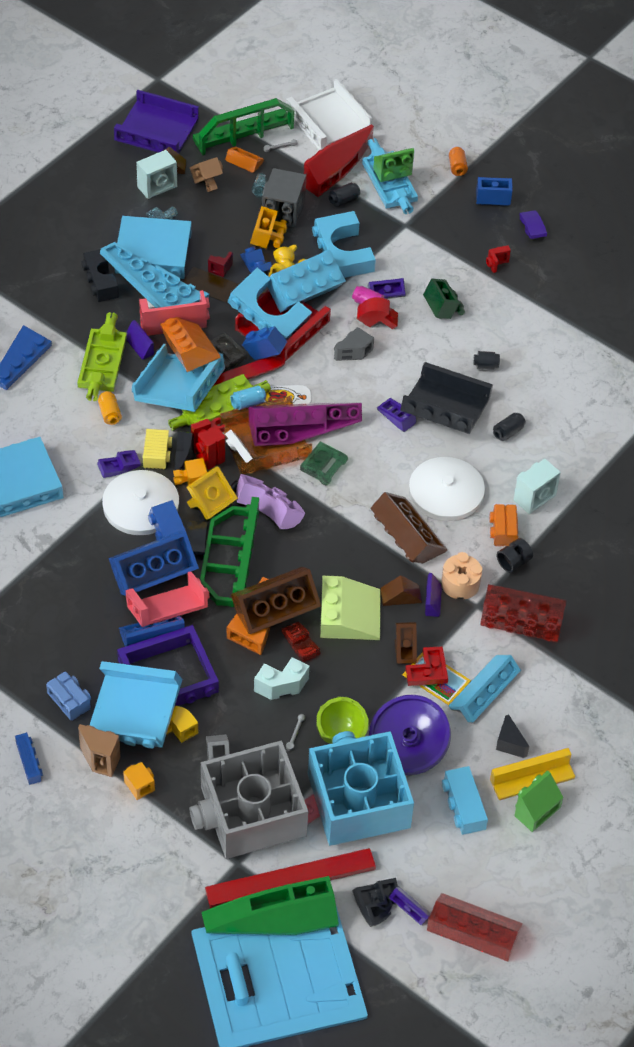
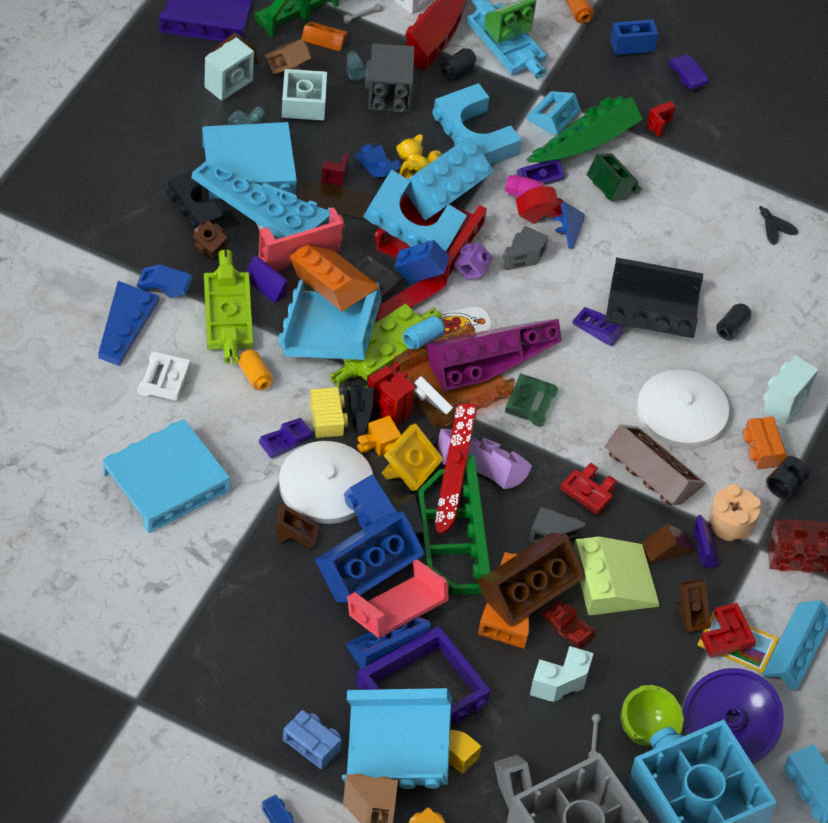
camera: 15 degrees left, 0 degrees up
(41, 405) = (170, 379): none -> white plate
(60, 329) = (169, 280): none -> blue slope
(102, 530) = (296, 526): none -> reddish brown slope
(103, 303) = (210, 239): none -> reddish brown brick
(211, 201) = (304, 94): none -> light aqua brick
(242, 504) = (455, 466): none -> red piece
(264, 227) = (378, 118): light orange brick -> none
(308, 348) = (473, 260): none -> medium lavender brick
(310, 559) = (550, 521): none -> dark grey slope
(347, 542) = (585, 491): none -> red plate
(399, 330) = (572, 221): none -> blue piece
(415, 245) = (559, 116): none -> medium azure tile
(434, 261) = (591, 130): none -> green wedge
(486, 360) = (684, 244): black brick -> none
(568, 353) = (773, 224): none -> black piece

